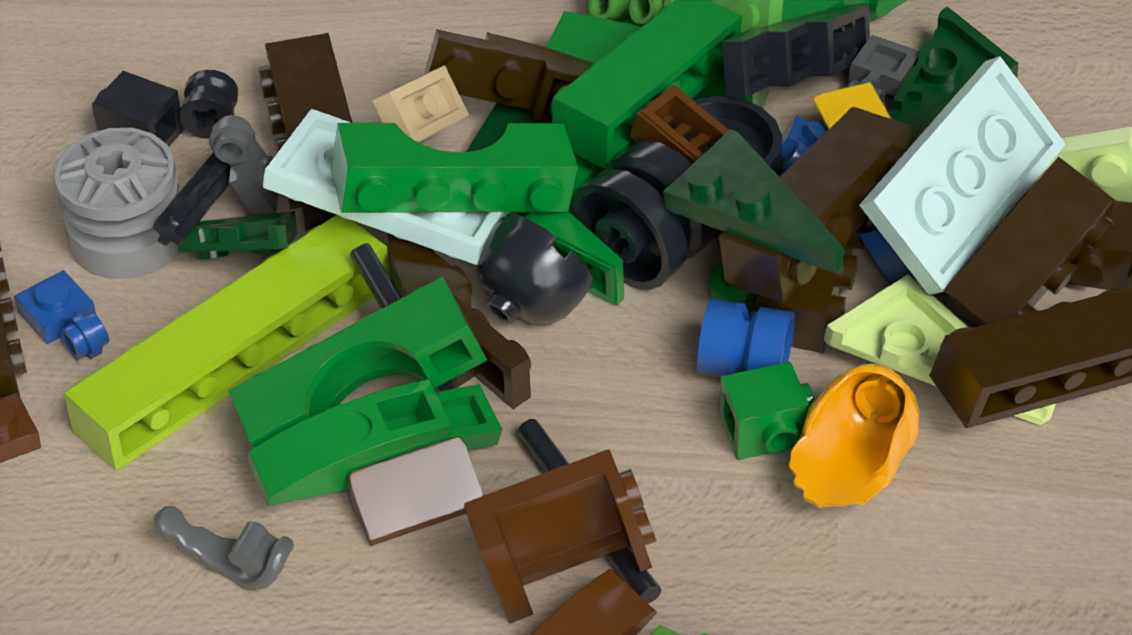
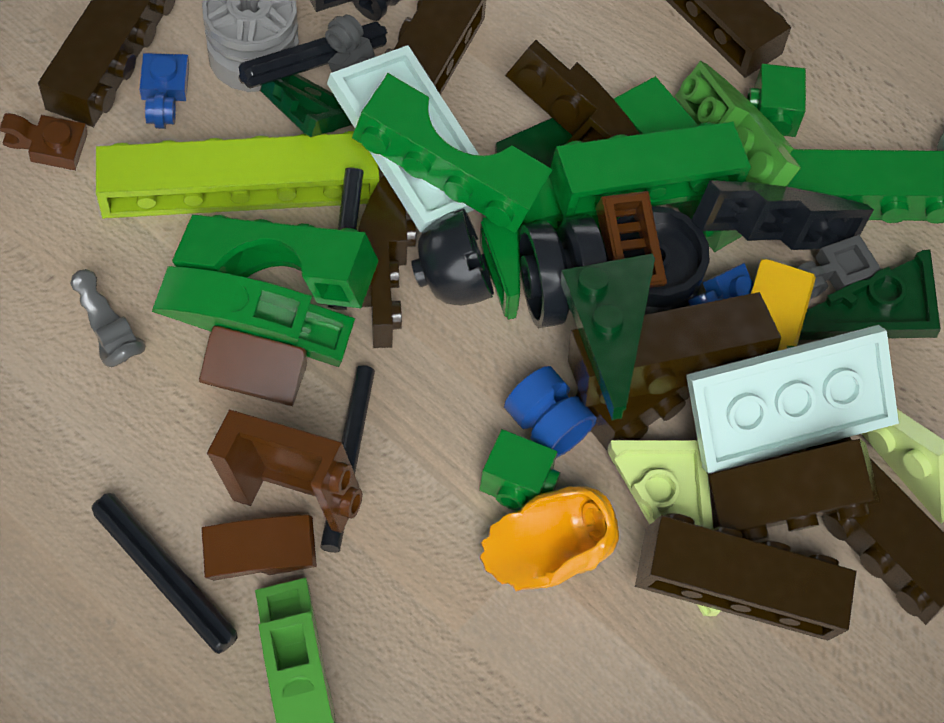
camera: 30 degrees right, 15 degrees up
(423, 105) = (476, 92): tan plate -> none

